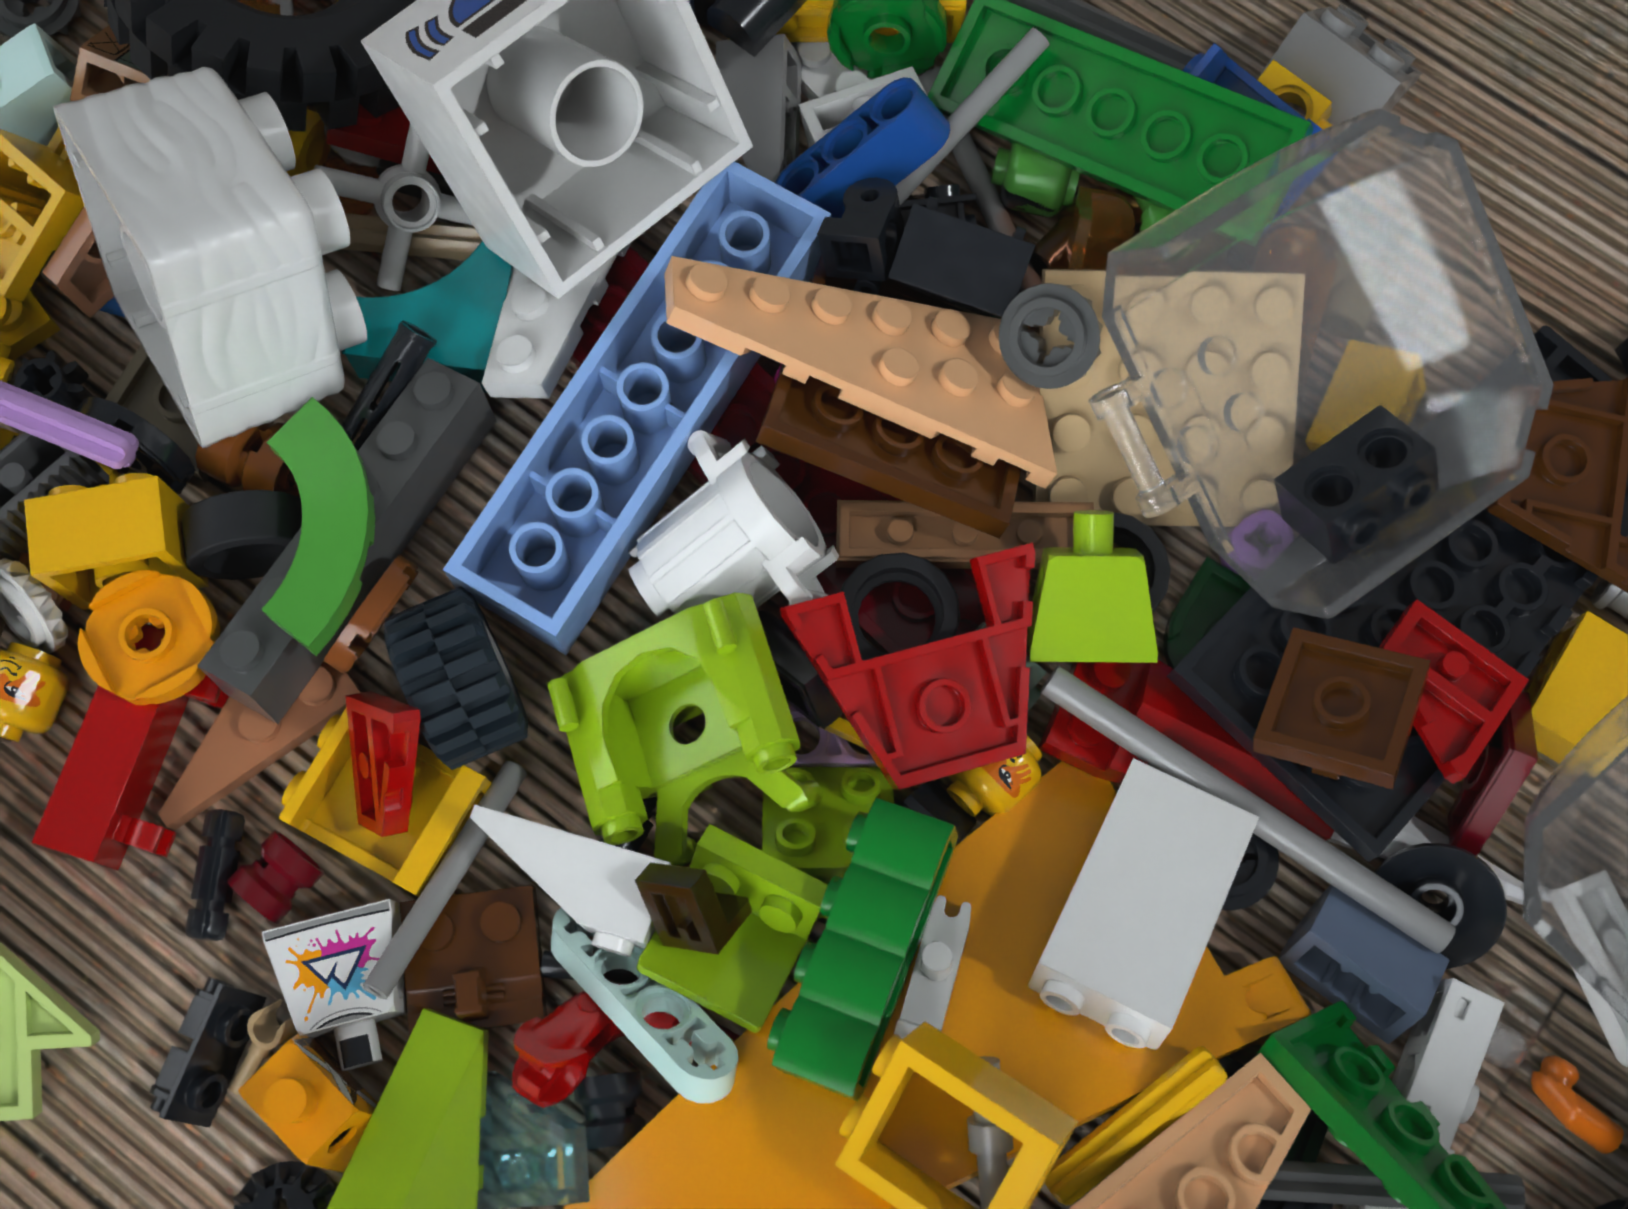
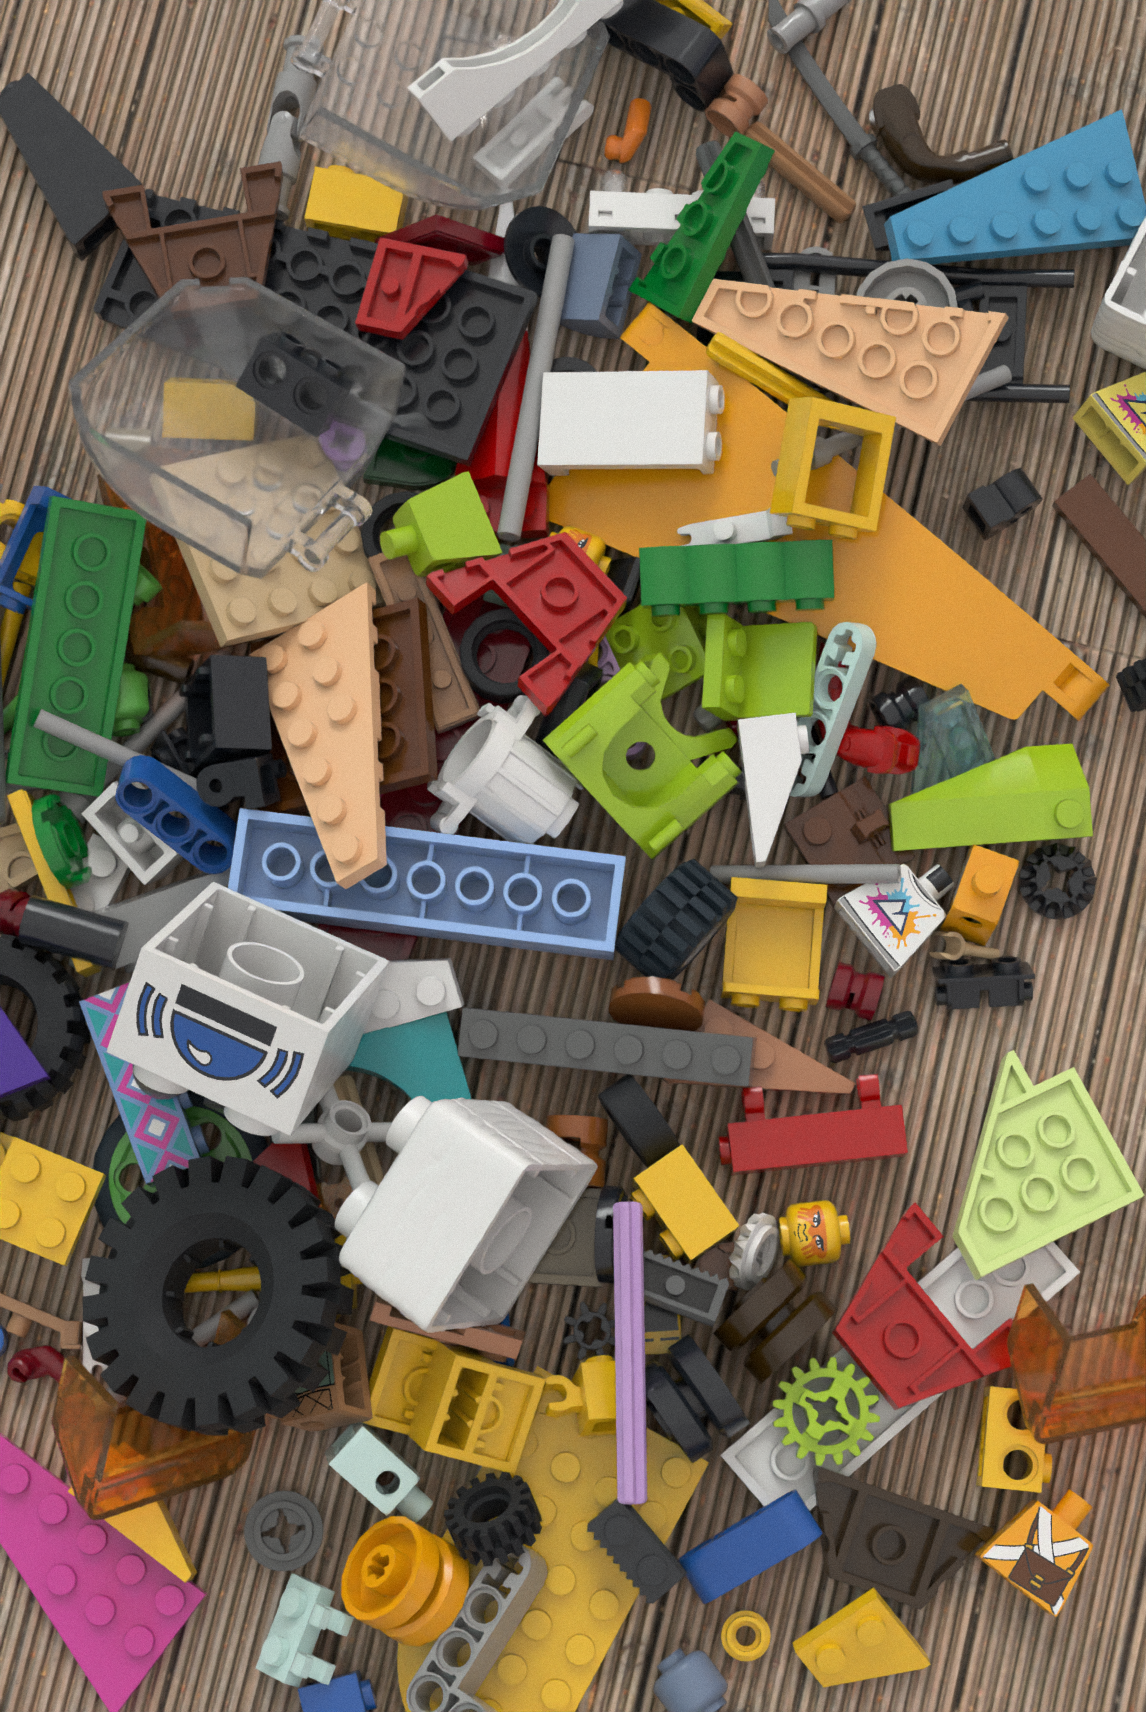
camera: 110 degrees left, 5 degrees up
(115, 626) = (769, 1134): light orange plate -> none
(334, 527) = (609, 1040): bright green tile -> none
(383, 760) = (751, 943): red wing -> none
(409, 348) = (530, 1087): black pin -> none
(688, 909) = (762, 690): dark brown bracket -> none
(1024, 348) = (285, 602): dark grey gear -> none
(1342, 707) = (454, 342): reddish brown hinge -> none

